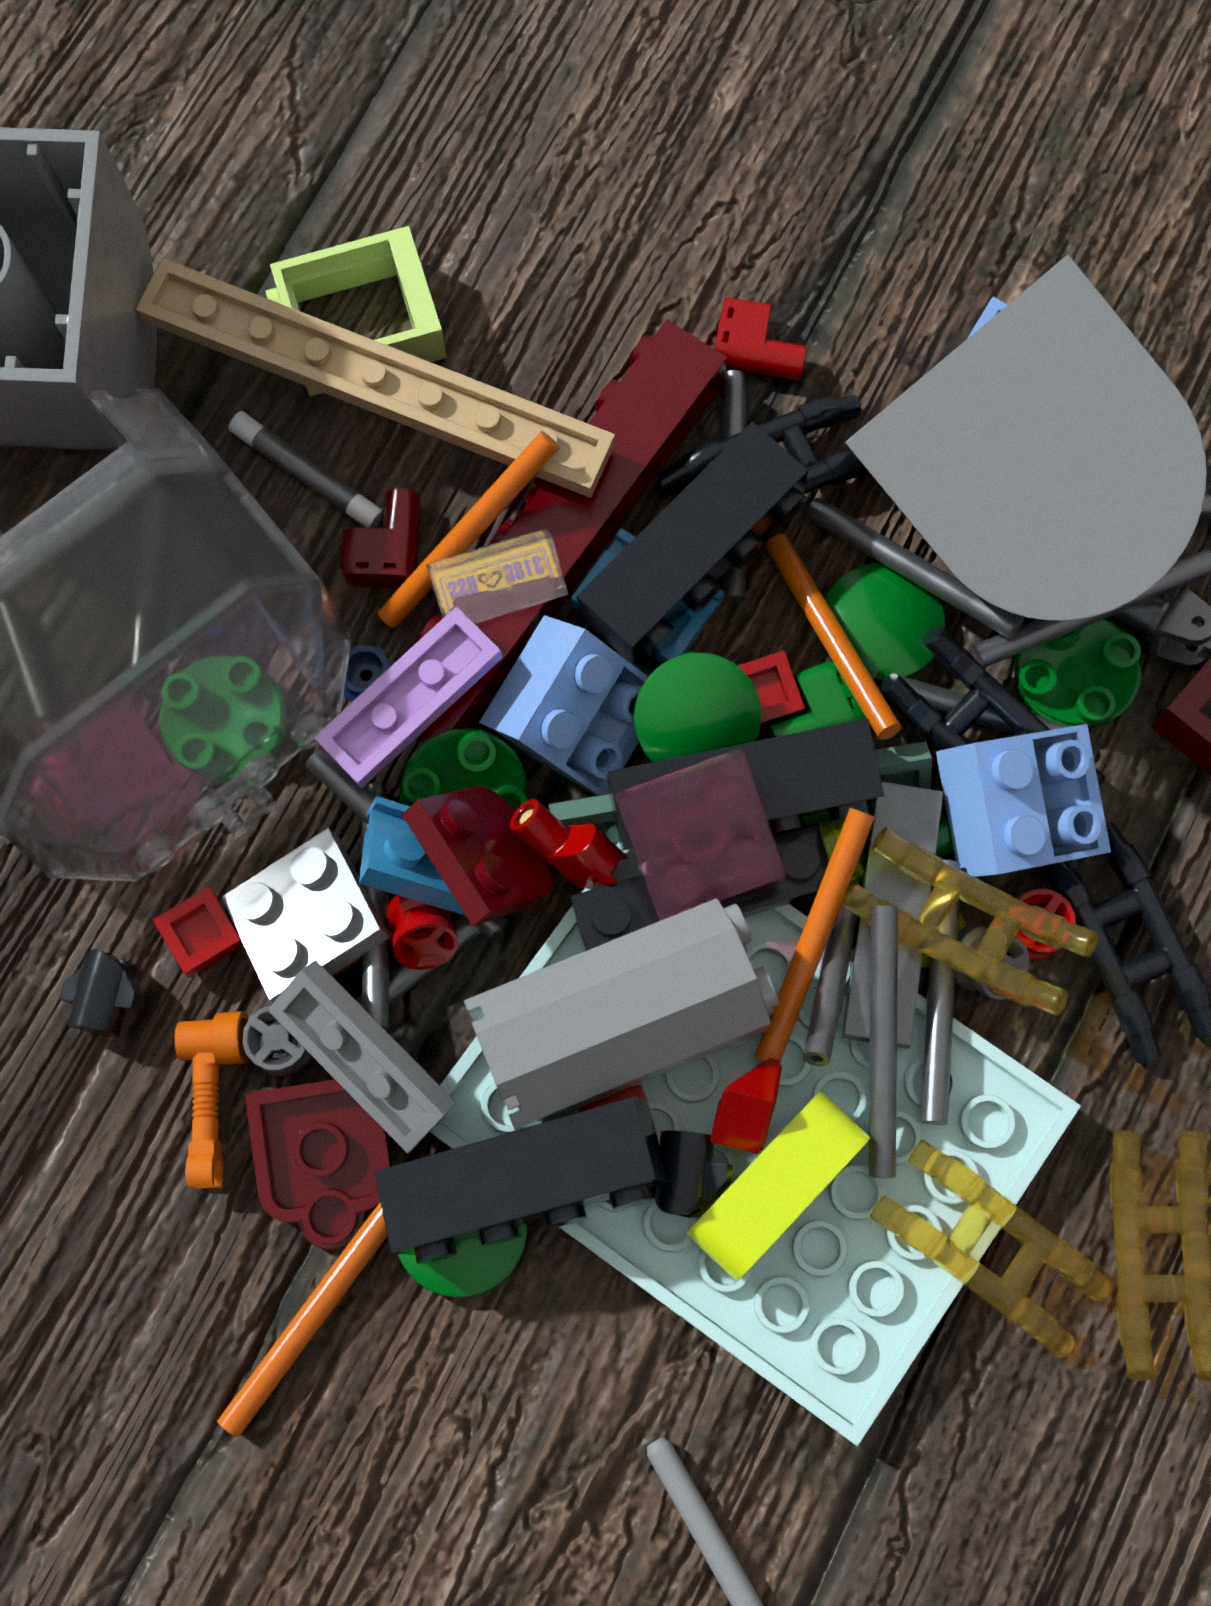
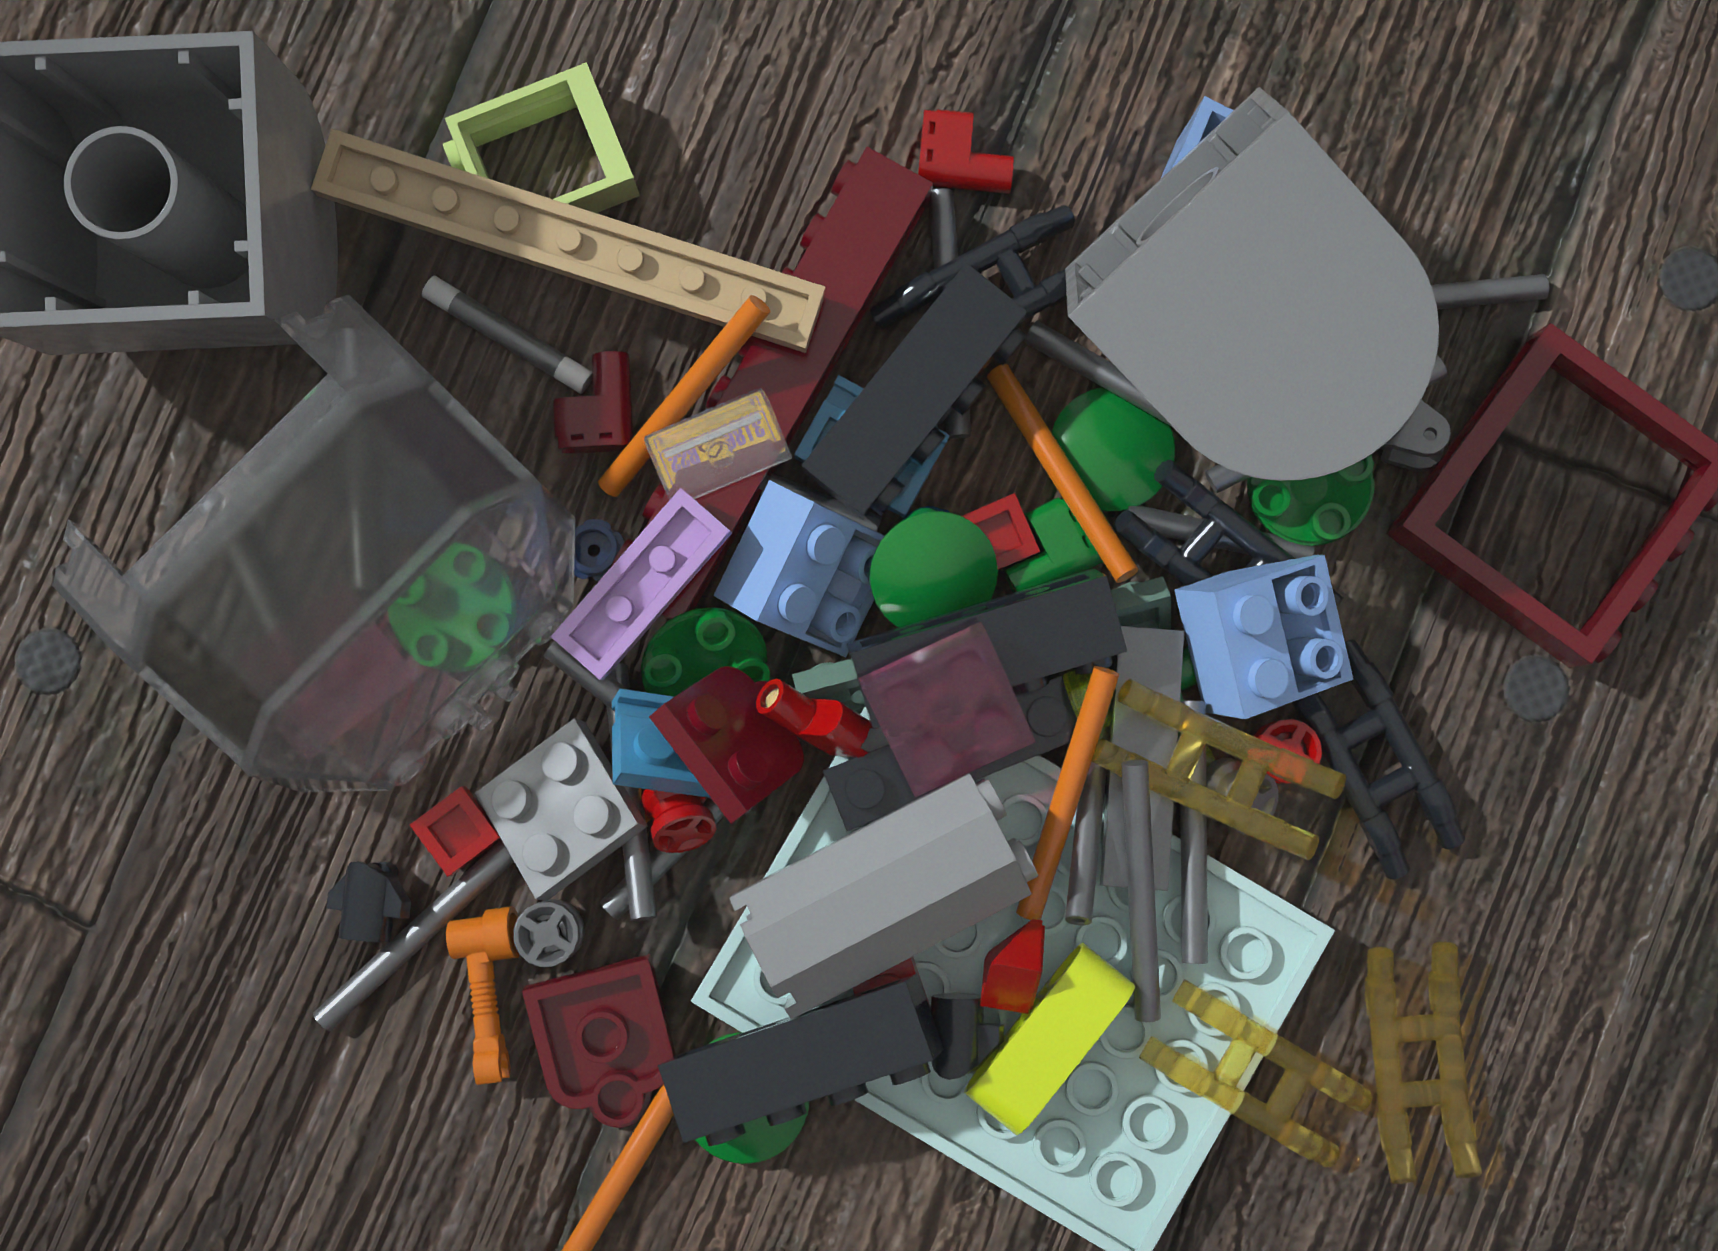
camera: 10 degrees left, 10 degrees up
(143, 1035) = (413, 937): none -> flat silver piece
(361, 1056) = (633, 950): light grey plate -> none

